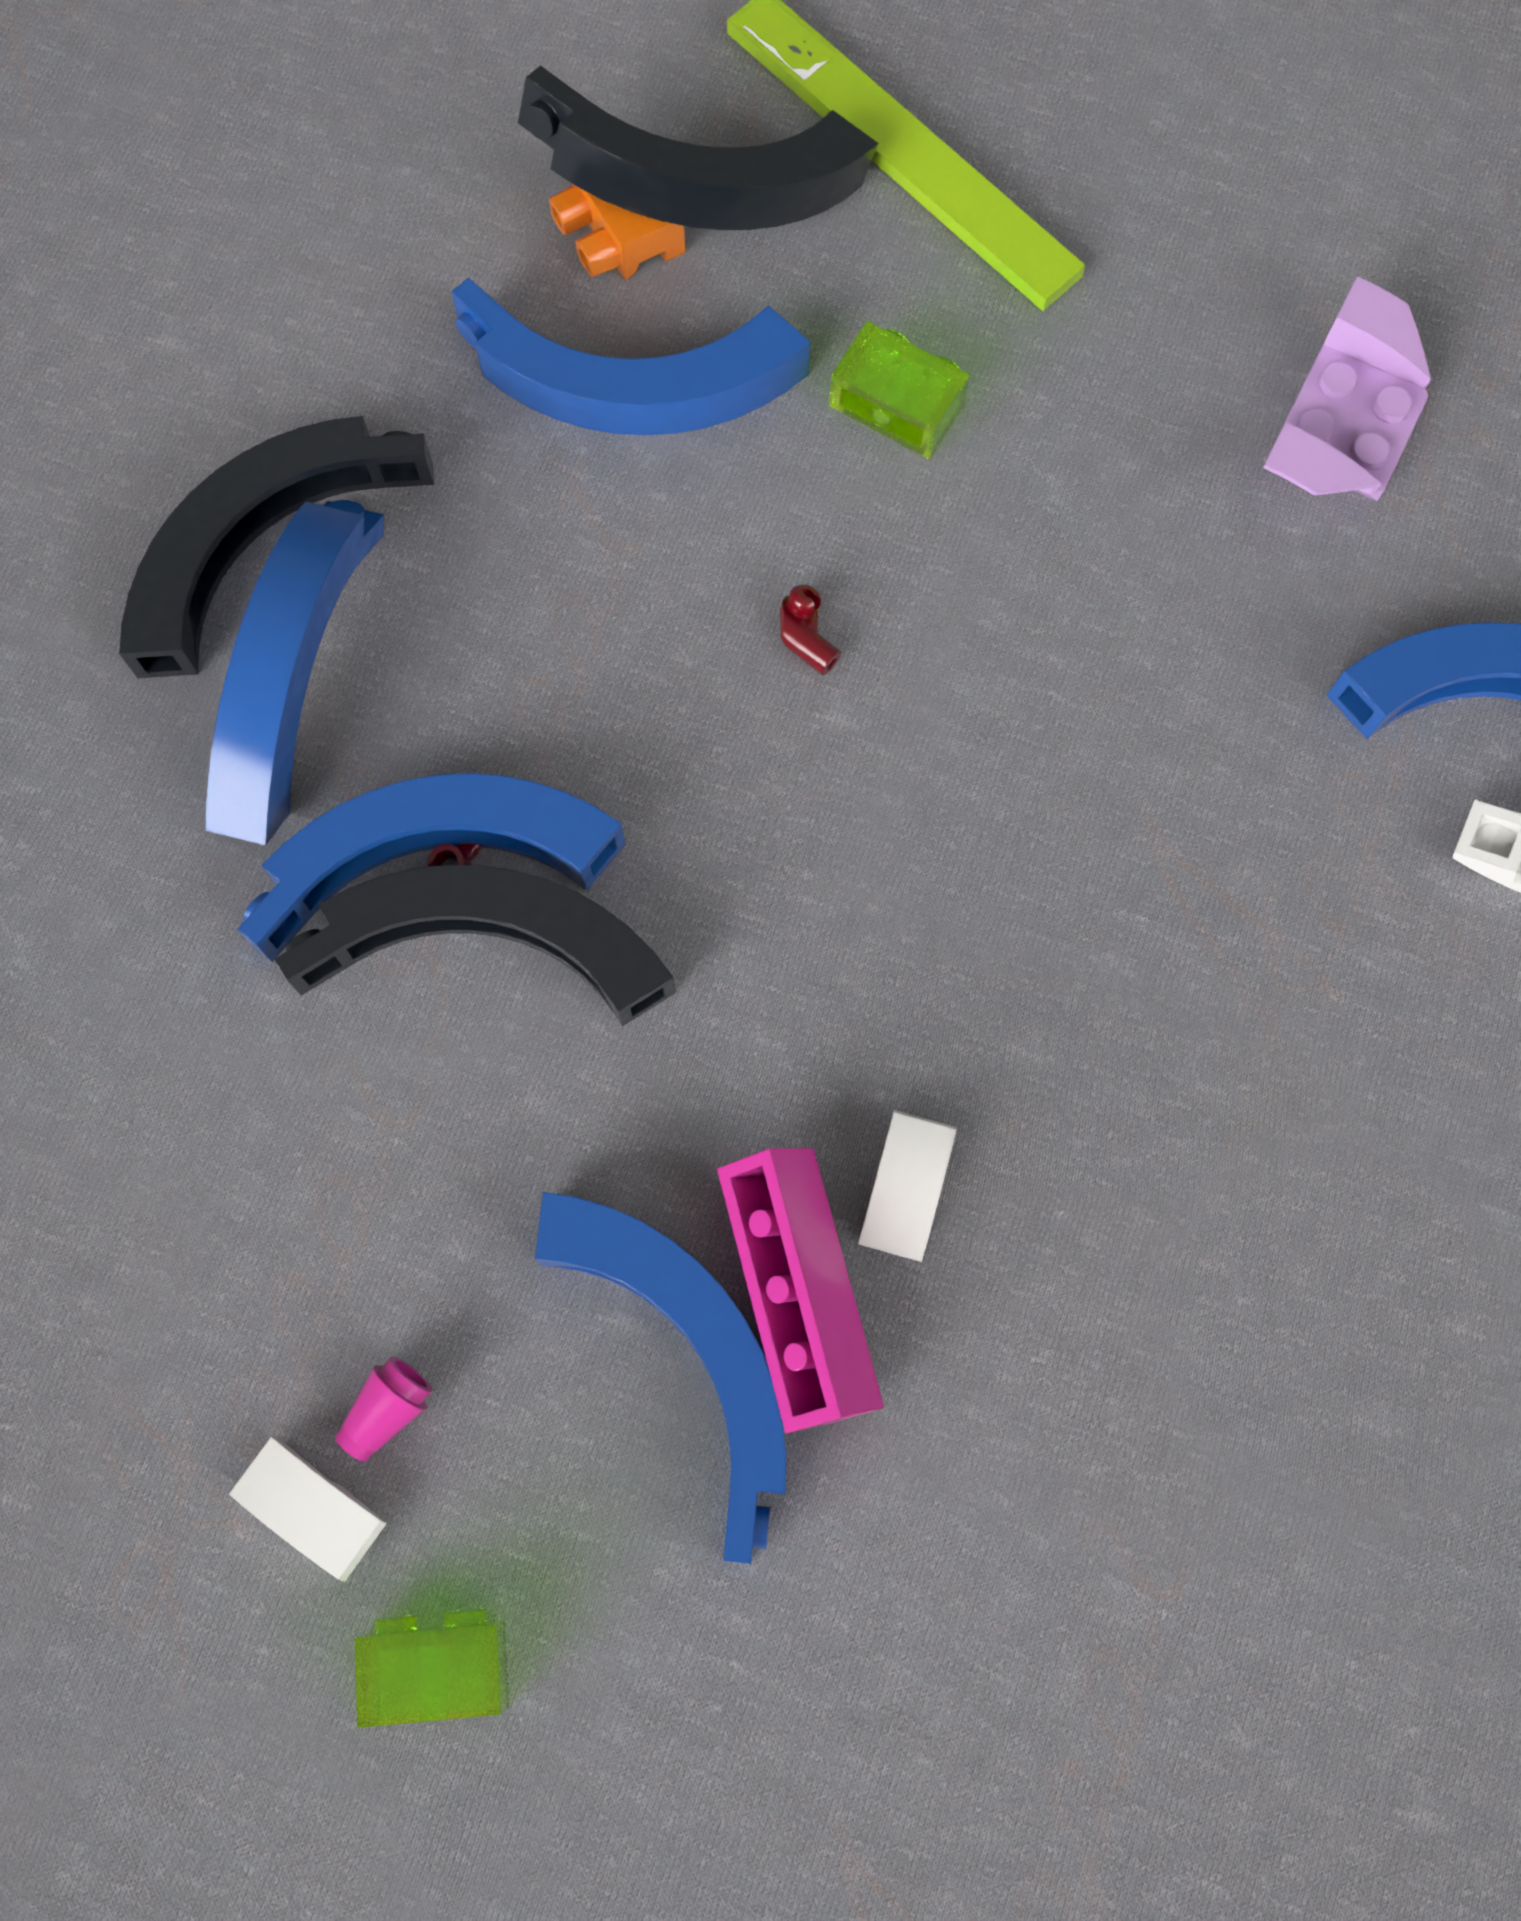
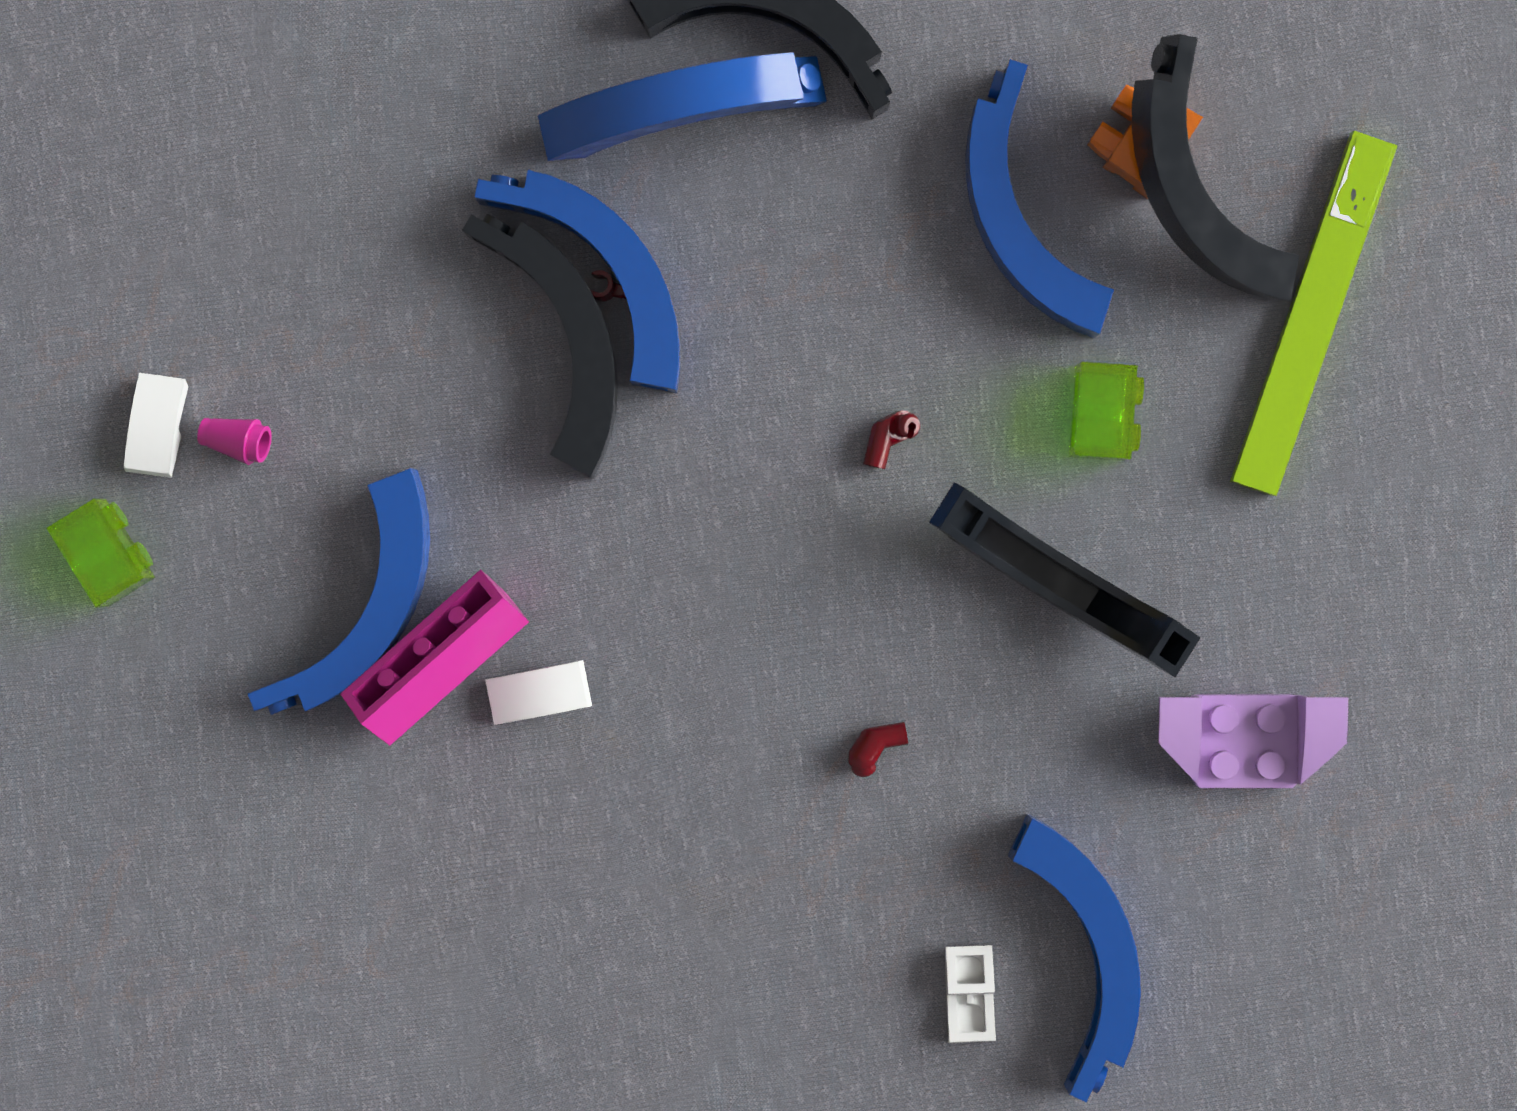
camera: 60 degrees right, 15 degrees up
(1088, 512) = (1063, 581): none -> black arch
(1164, 822) = (871, 744): none -> dark red arm

